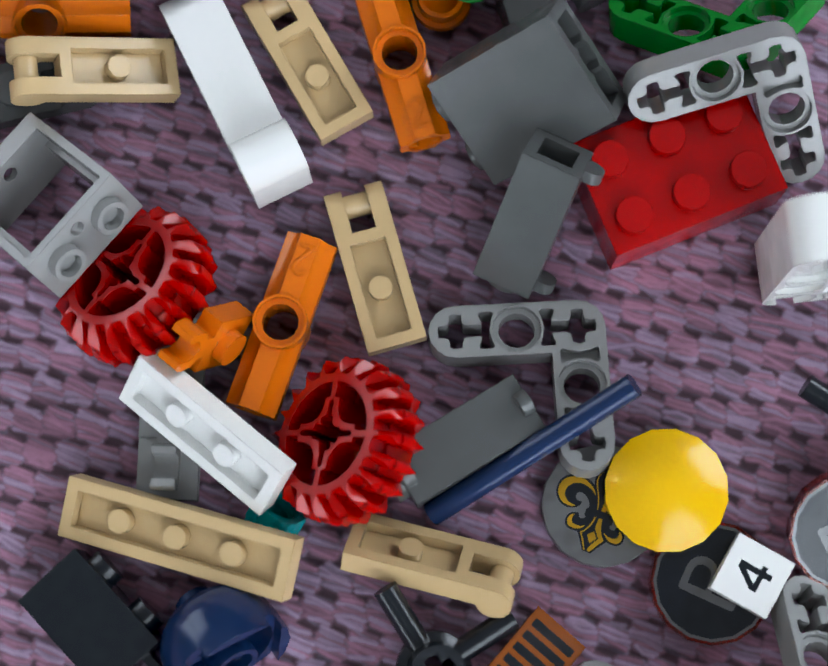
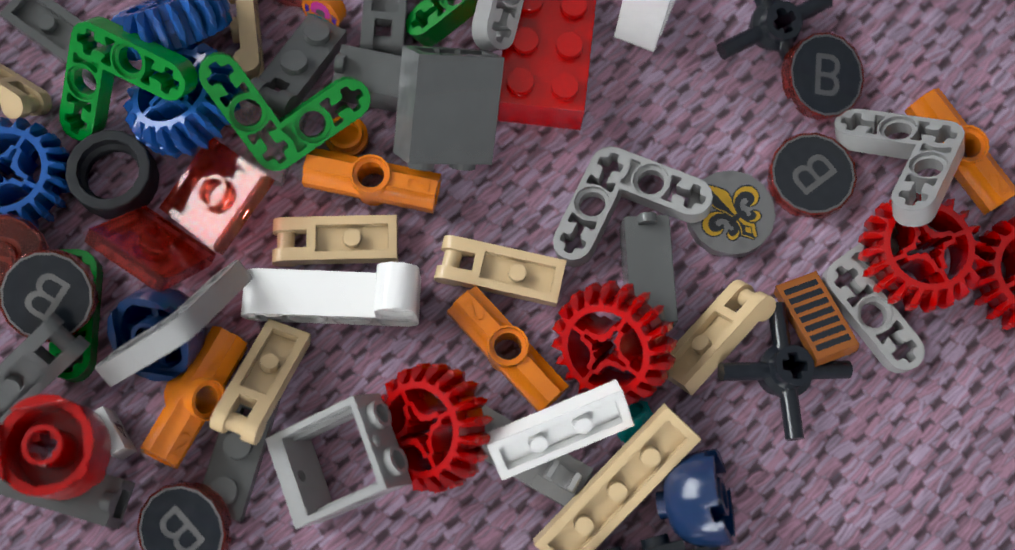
camera: 70 degrees left, 5 degrees down
(210, 341) = (497, 395): orange plate -> none
(533, 449) = (679, 225): dark blue bar -> none
(534, 214) = (528, 146): dark grey brick -> none
(666, 490) = (744, 167): yellow dish -> none
(751, 576) = (823, 146): white tile -> none

